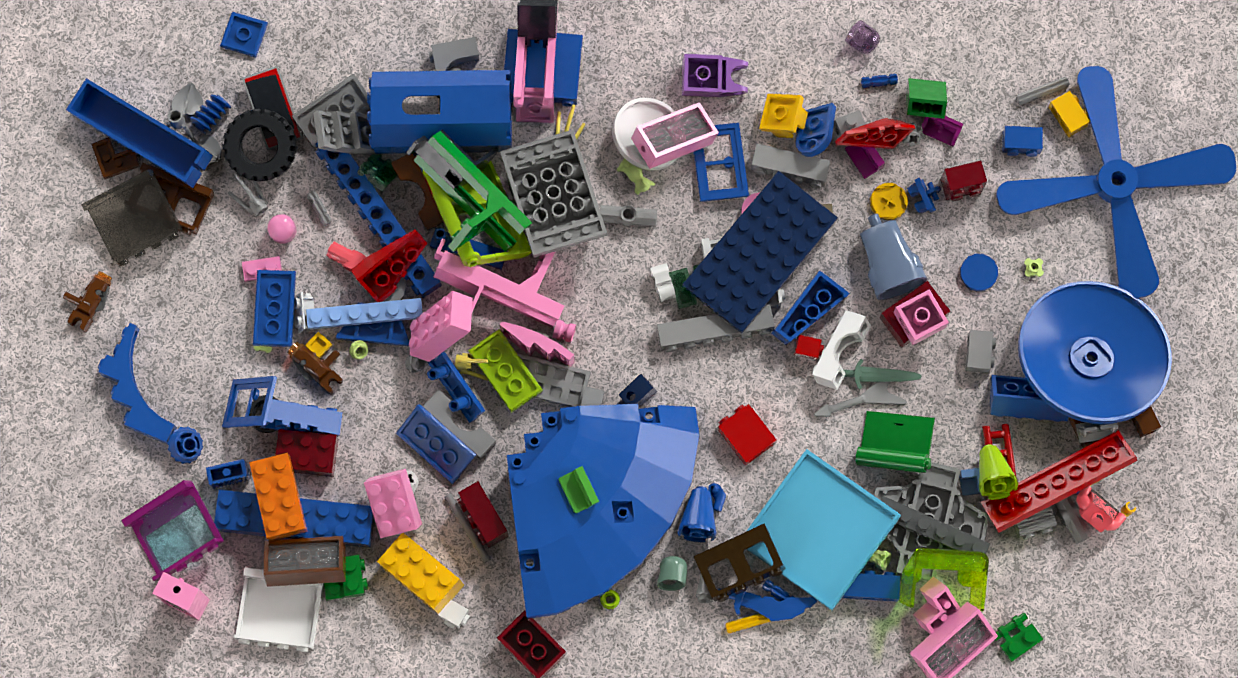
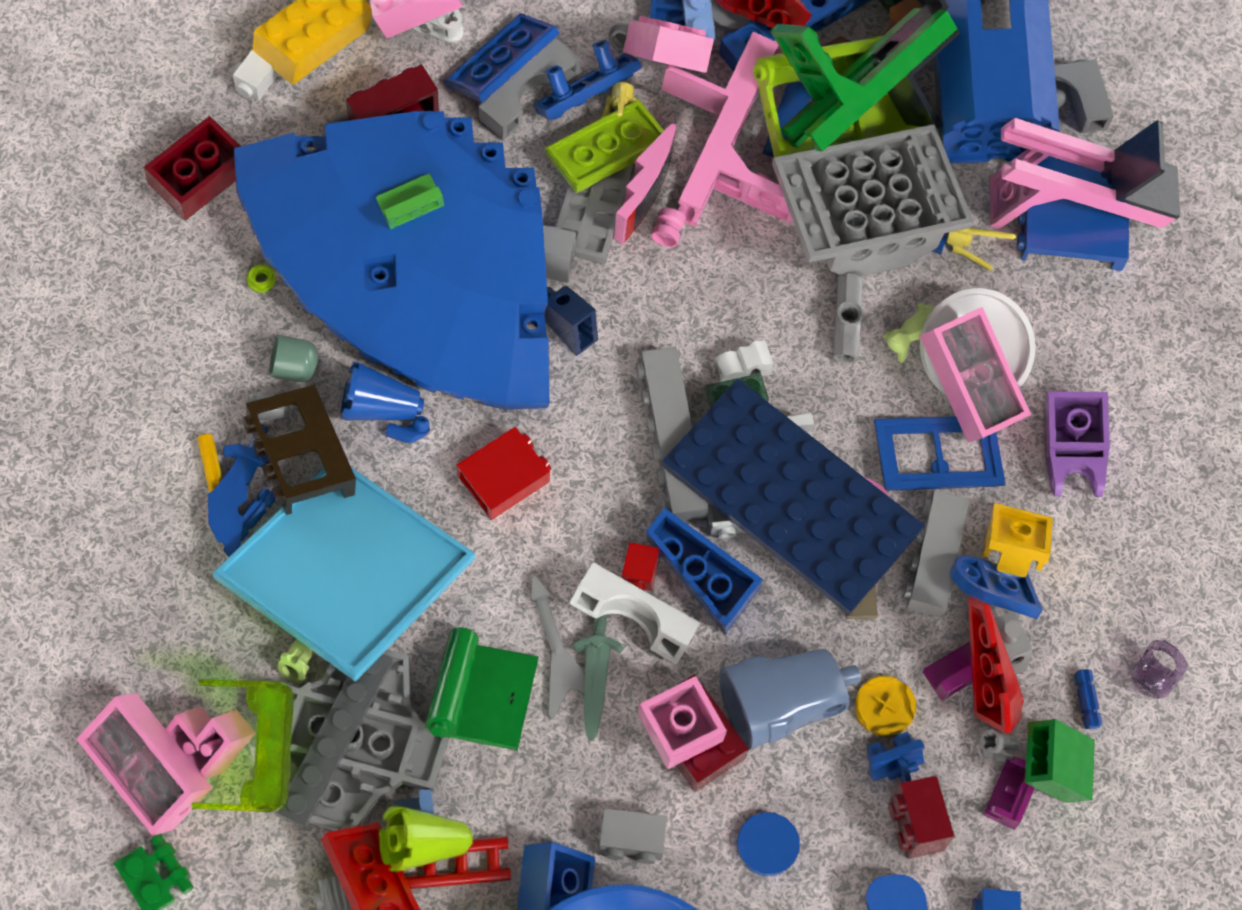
camera: 85 degrees right, 10 degrees down
(875, 587) = (251, 646): blue brick -> none

